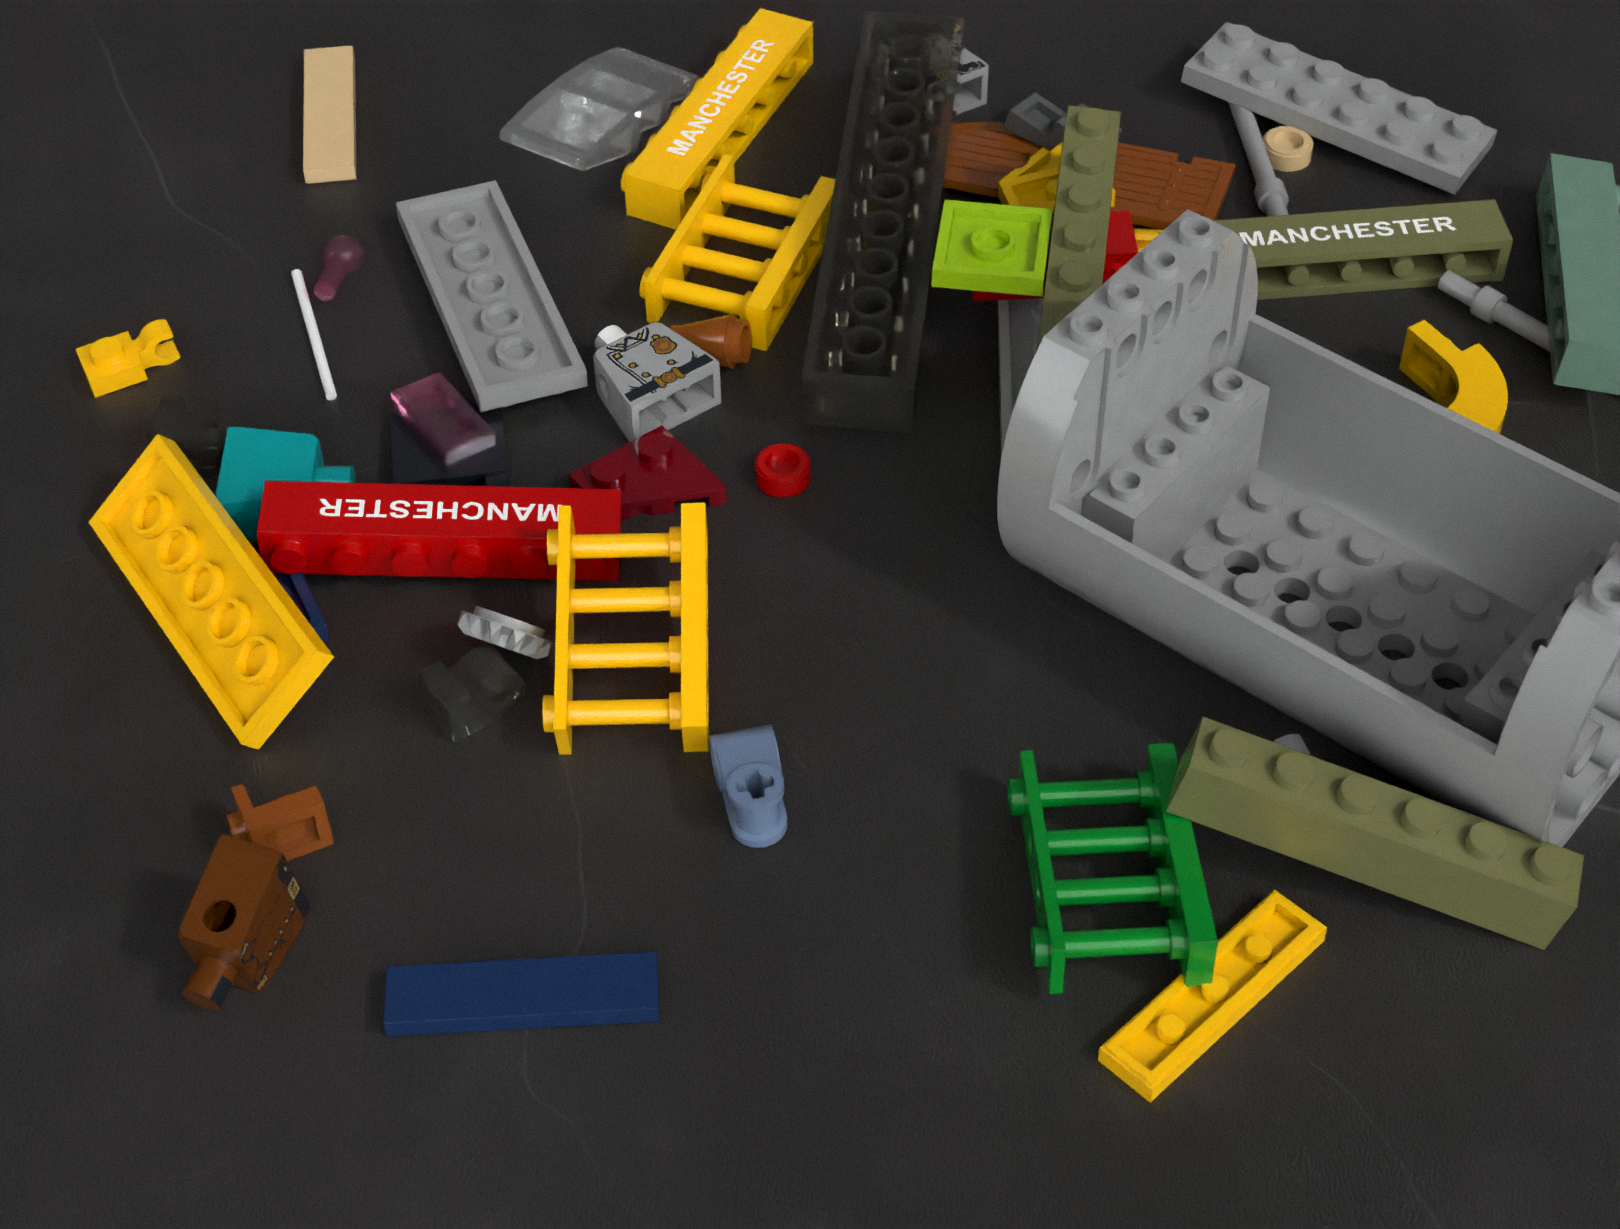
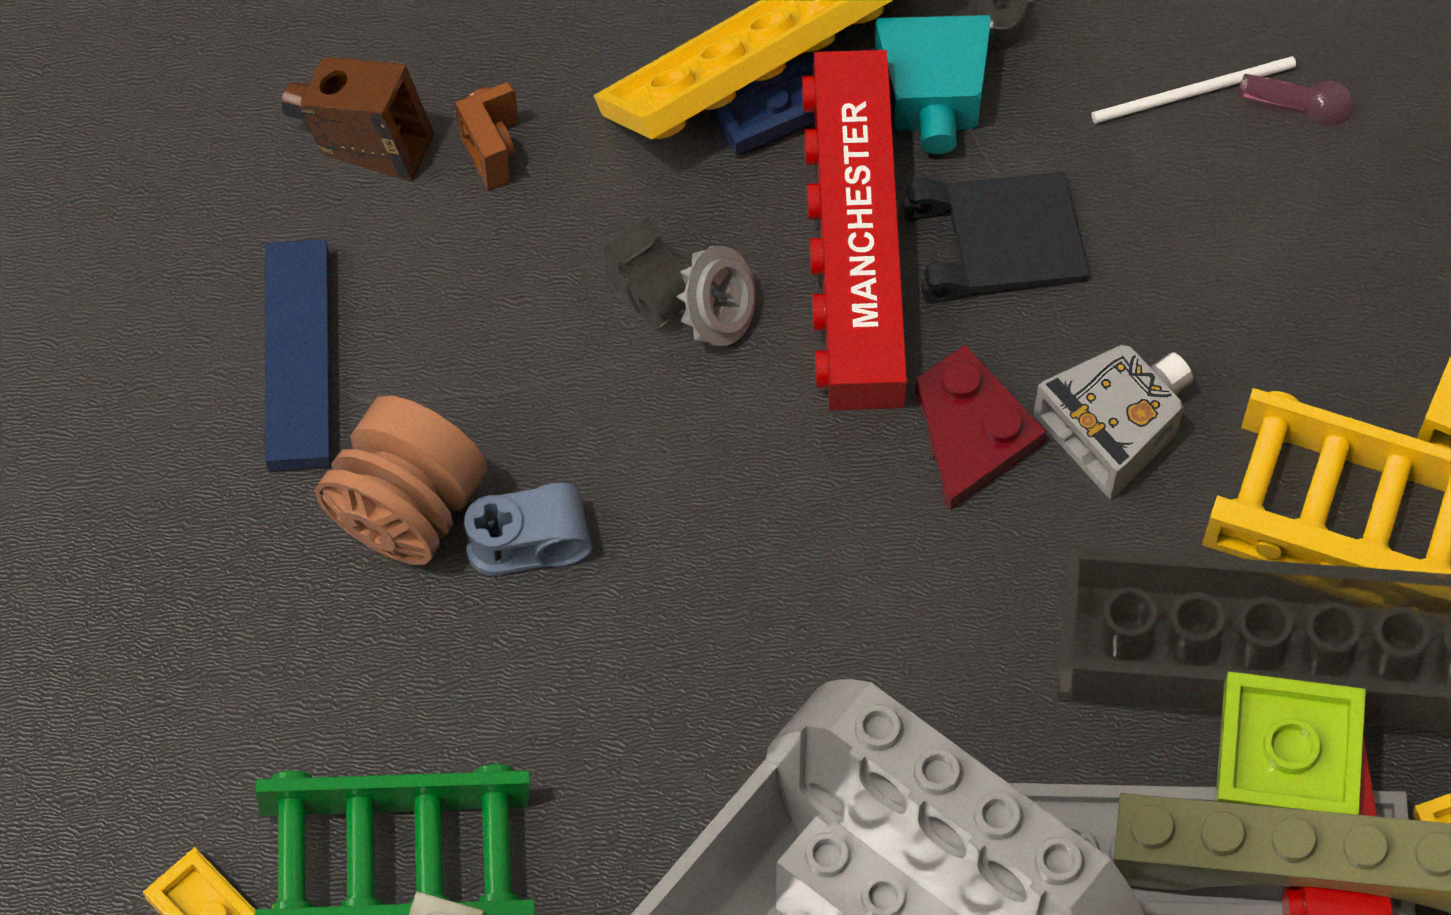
camera: 90 degrees right, 15 degrees up
(442, 418) = (1045, 218): clear pink plate -> none
(490, 296) = (1253, 243): light grey plate -> none
(683, 653) = (713, 457): yellow fence -> none
(706, 858) = (401, 479): none -> nougat wheel
(721, 337) = (1188, 480): dark orange cone -> none
(782, 470) = (991, 561): red tile -> none

